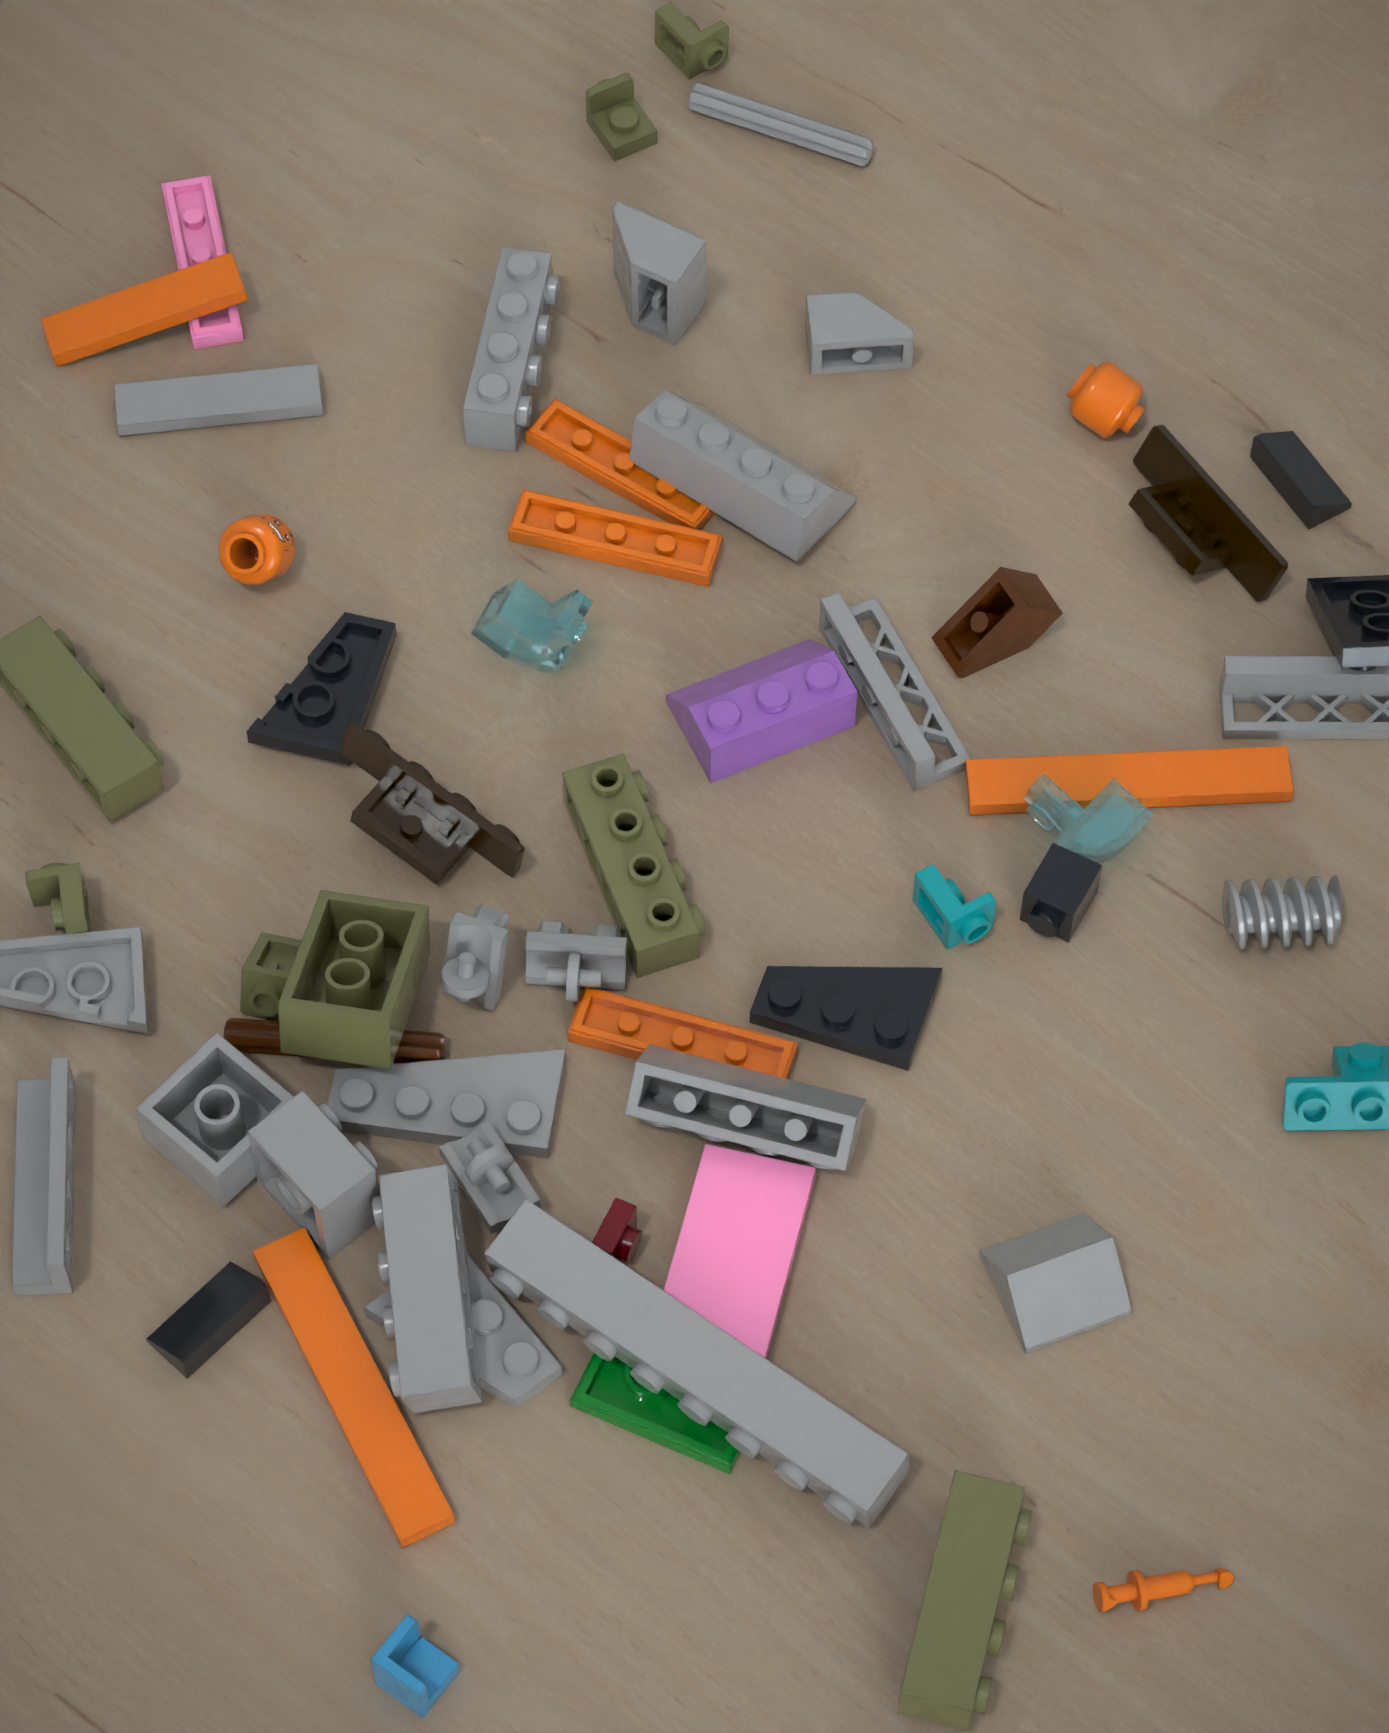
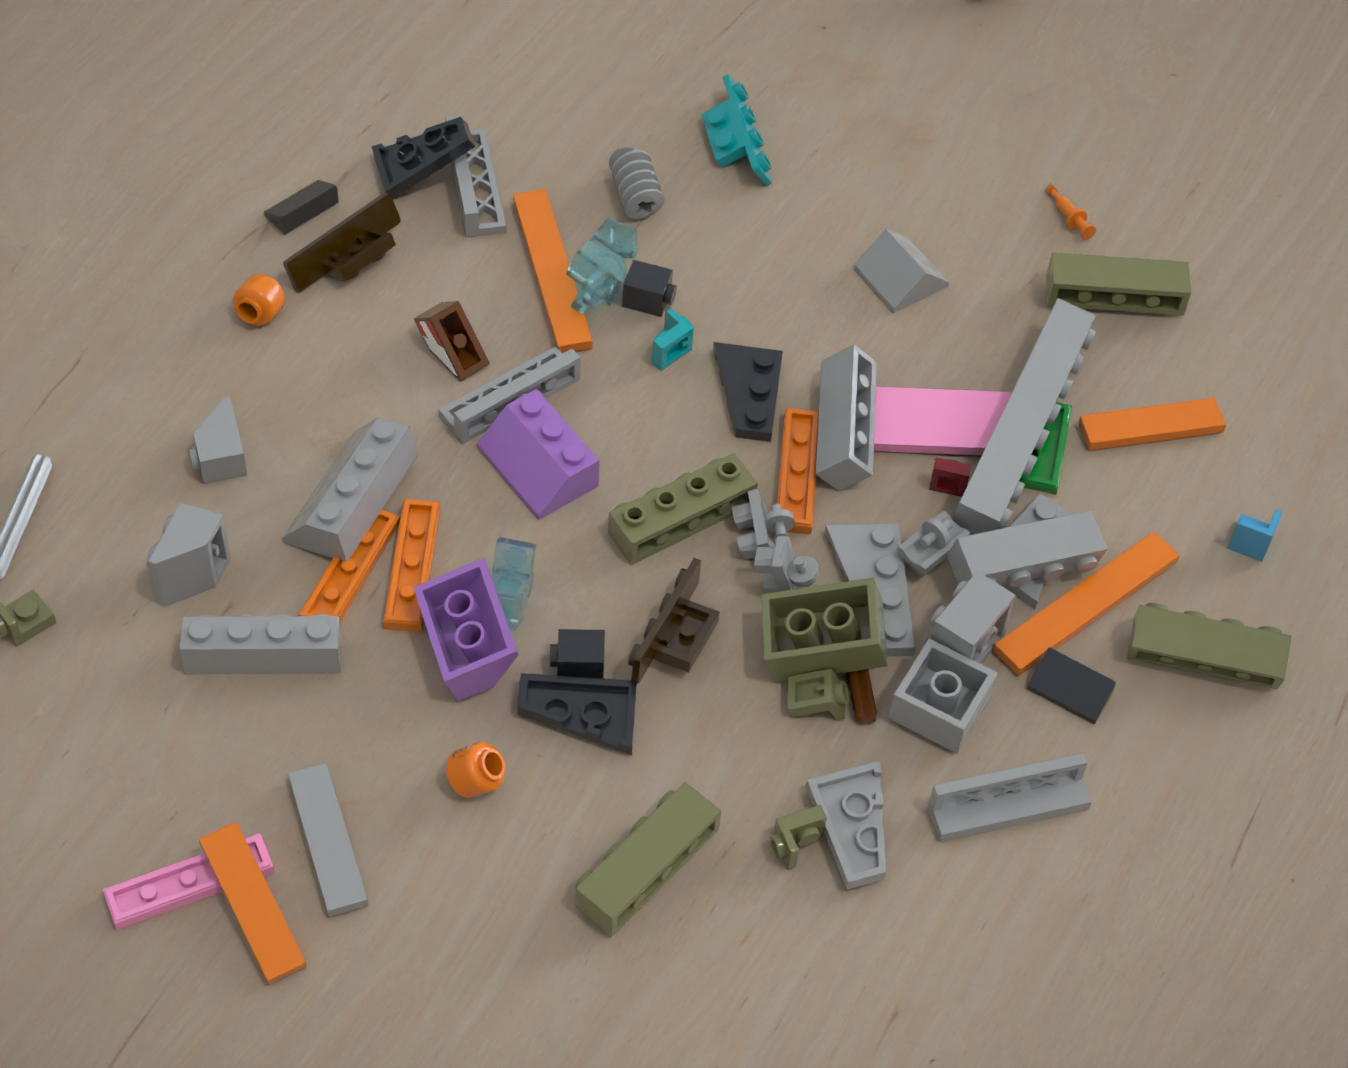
camera: 105 degrees left, 5 degrees down
(212, 1518) = (1209, 645): none -> olive brick
(408, 698) = (579, 653): none -> black brick
(463, 547) = (467, 628): none -> medium lavender slope
(672, 1588) = (1151, 424): none -> orange tile
(1178, 880) = (619, 237): none -> clear light blue slope

